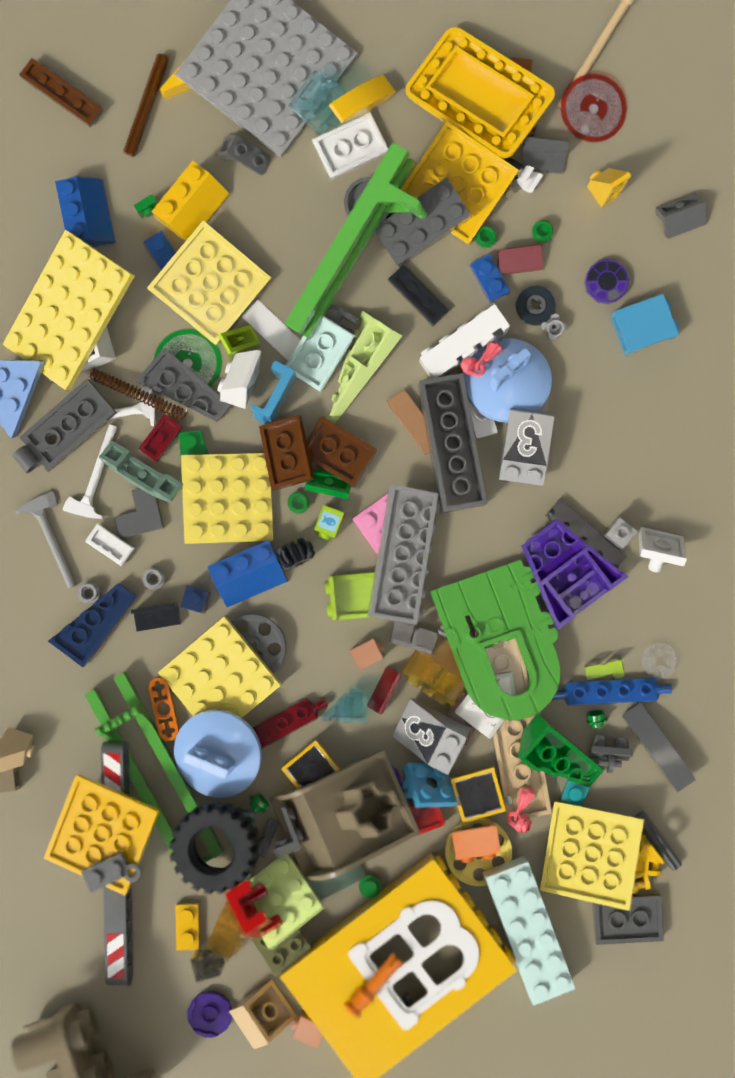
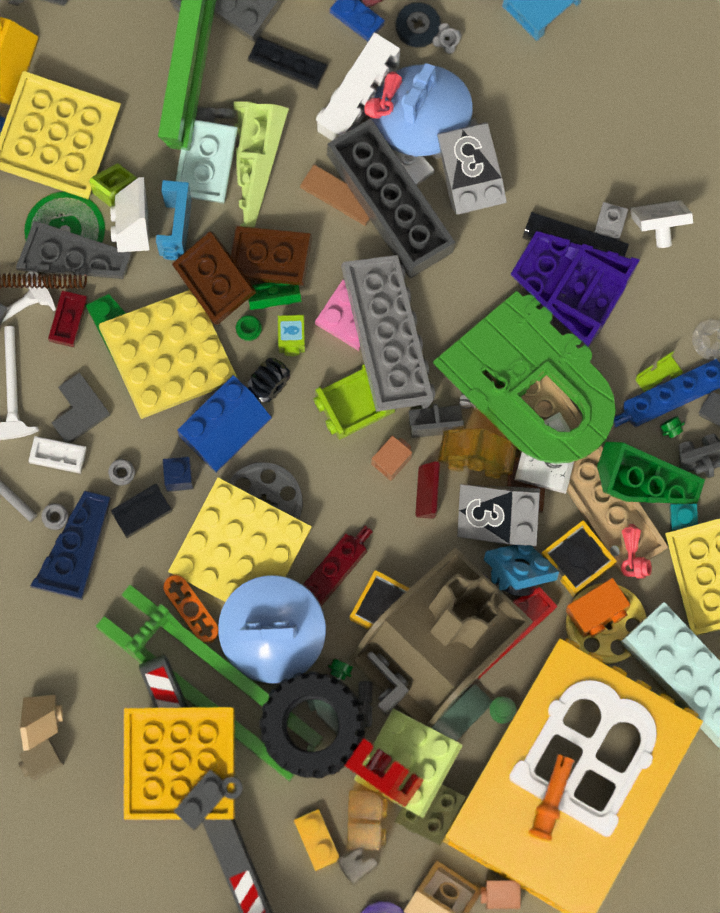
camera: 25 degrees left, 10 degrees down
(140, 474) = (61, 366): sand green slope -> none
(271, 329) = (142, 159): white sticker -> none
(349, 707) = (397, 522): clear light blue slope -> none

